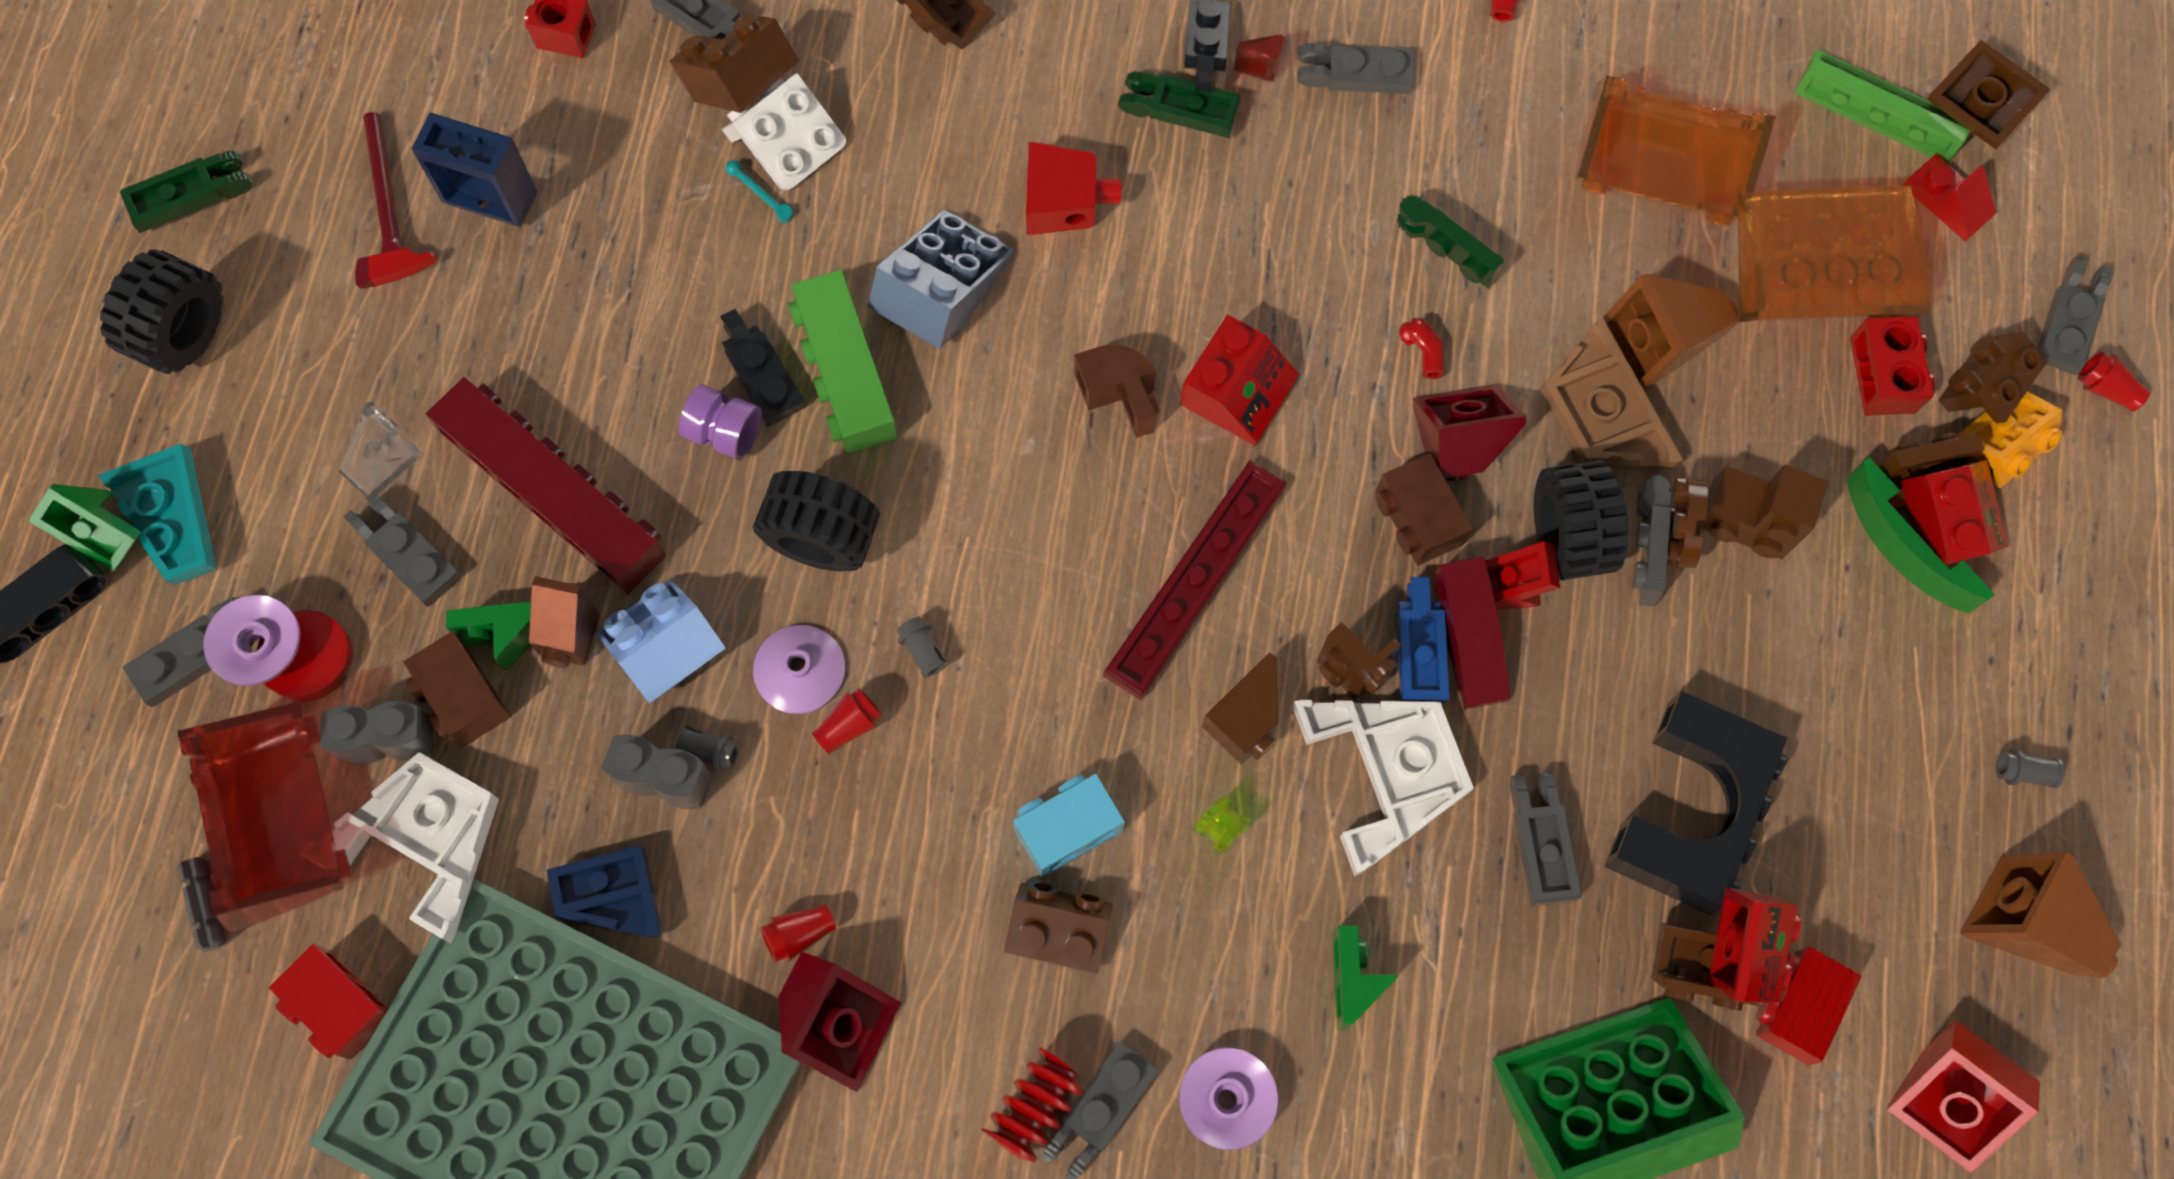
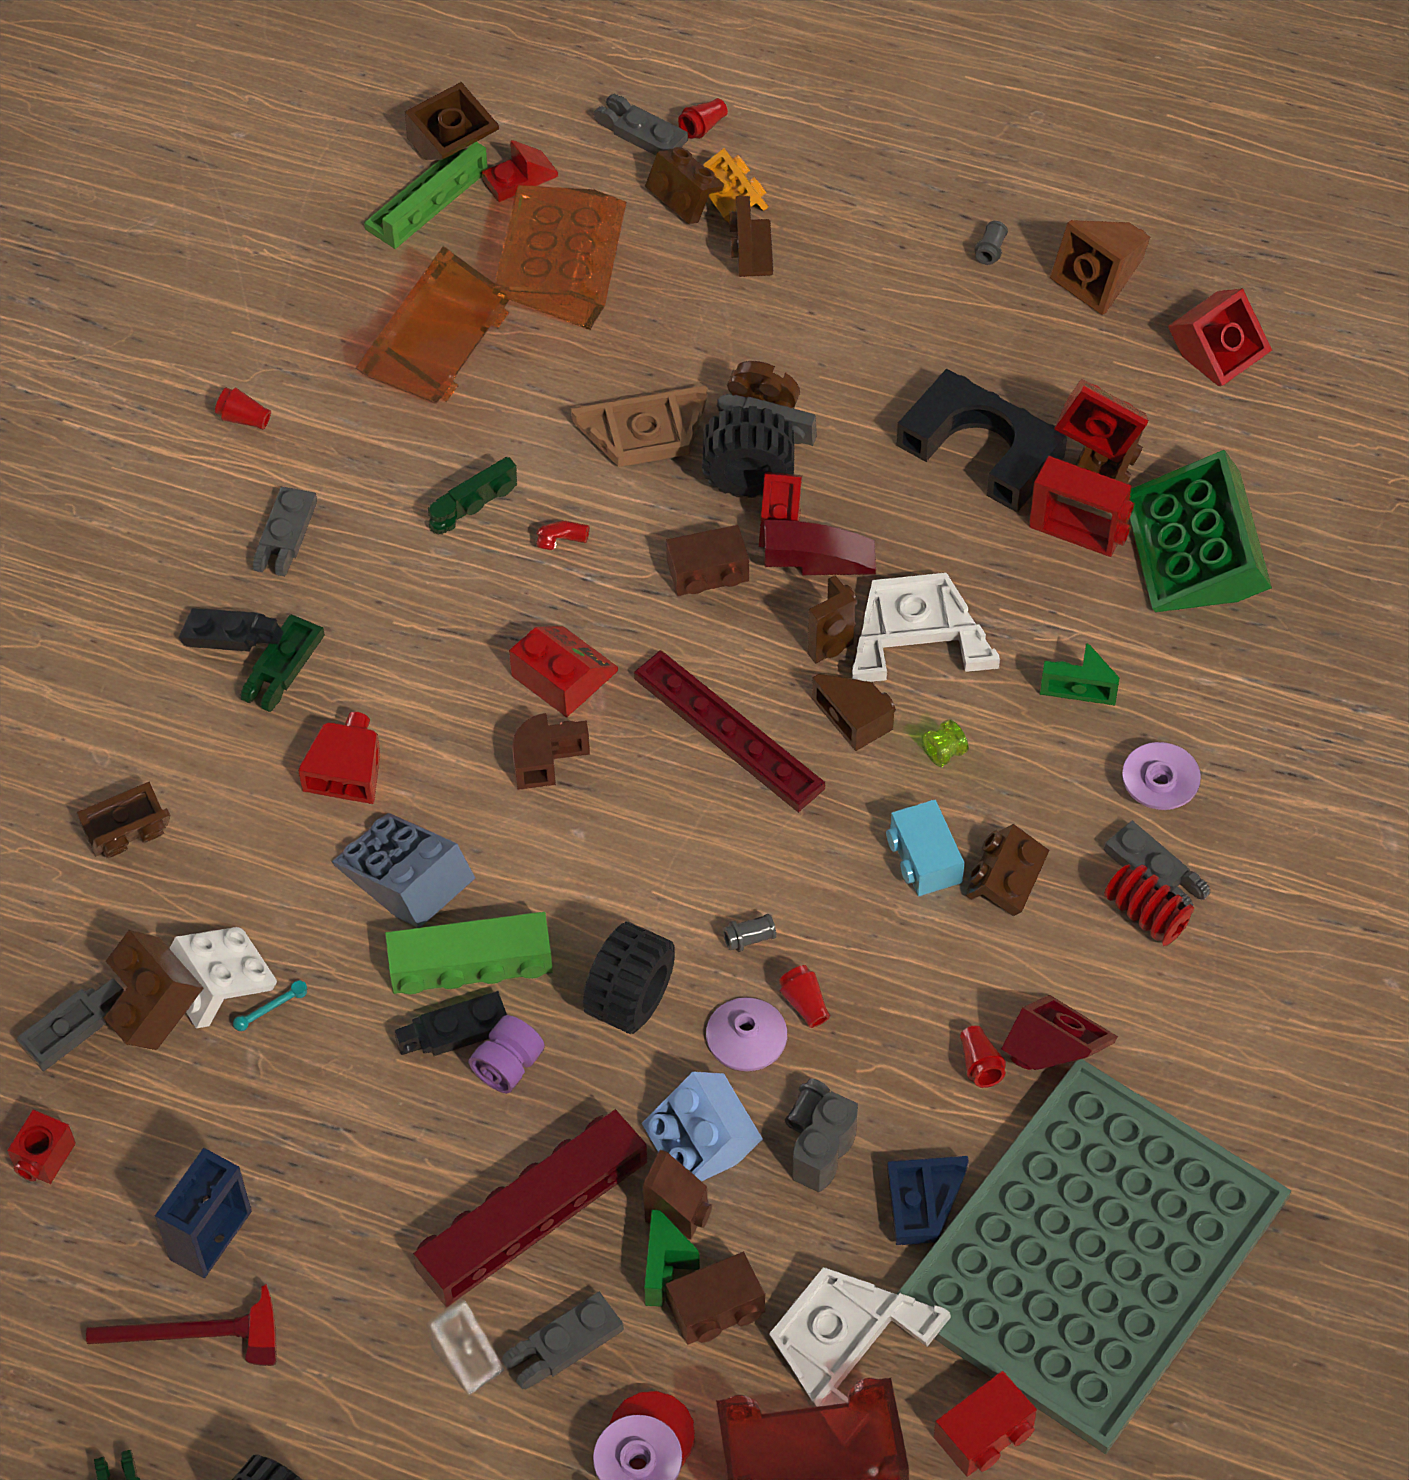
camera: 75 degrees left, 15 degrees down
(368, 736) = (746, 1357): dark grey brick -> none
(1260, 57) = (258, 590): clear red slope -> none
(1423, 646) = (810, 582): blue hinge -> none
(1467, 428) = (643, 516): dark red slope -> none
(1545, 843) = (991, 540): dark grey hinge -> none
(1611, 939) = (1074, 523): none -> red window
(1667, 323) = (594, 367): dark orange slope -> none
(1764, 513) = (765, 333): reddish brown brick -> none
(1809, 1007) = (1163, 410): red brick -> none
(1881, 366) = (657, 242): red brick -> none
(1905, 549) = (765, 280): green slope -> none
(1956, 512) = (790, 235): red slope -> none

